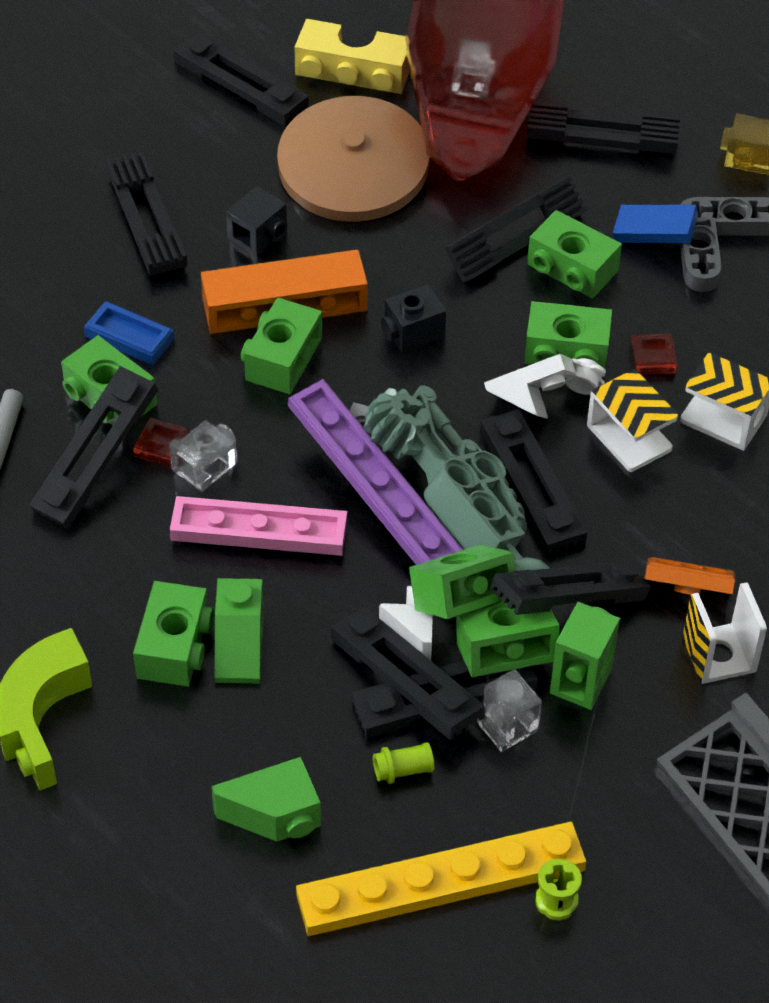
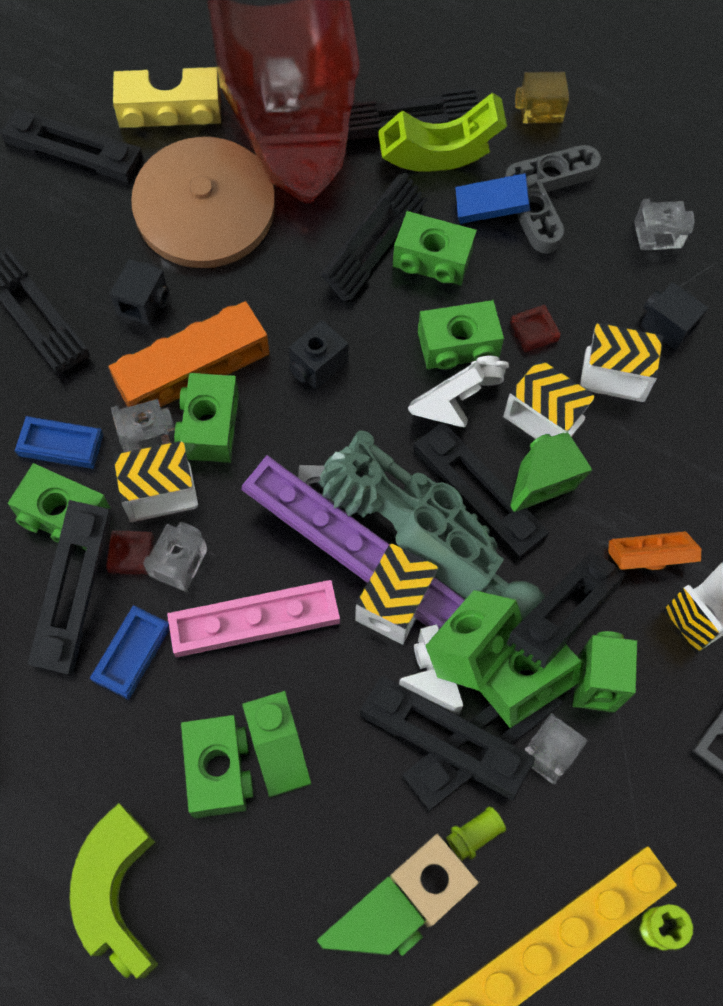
camera: 20 degrees left, 15 degrees up
(129, 524) = (130, 652): none -> blue tile
(208, 384) = (155, 481): none -> piece
(214, 338) = (142, 425): none -> clear brick
(345, 773) = (434, 905): none -> tan piece
(398, 533) = (395, 593): none -> piece
(607, 477) = (549, 470): none -> bright green slope
(618, 163) = (442, 145): none -> lime arch

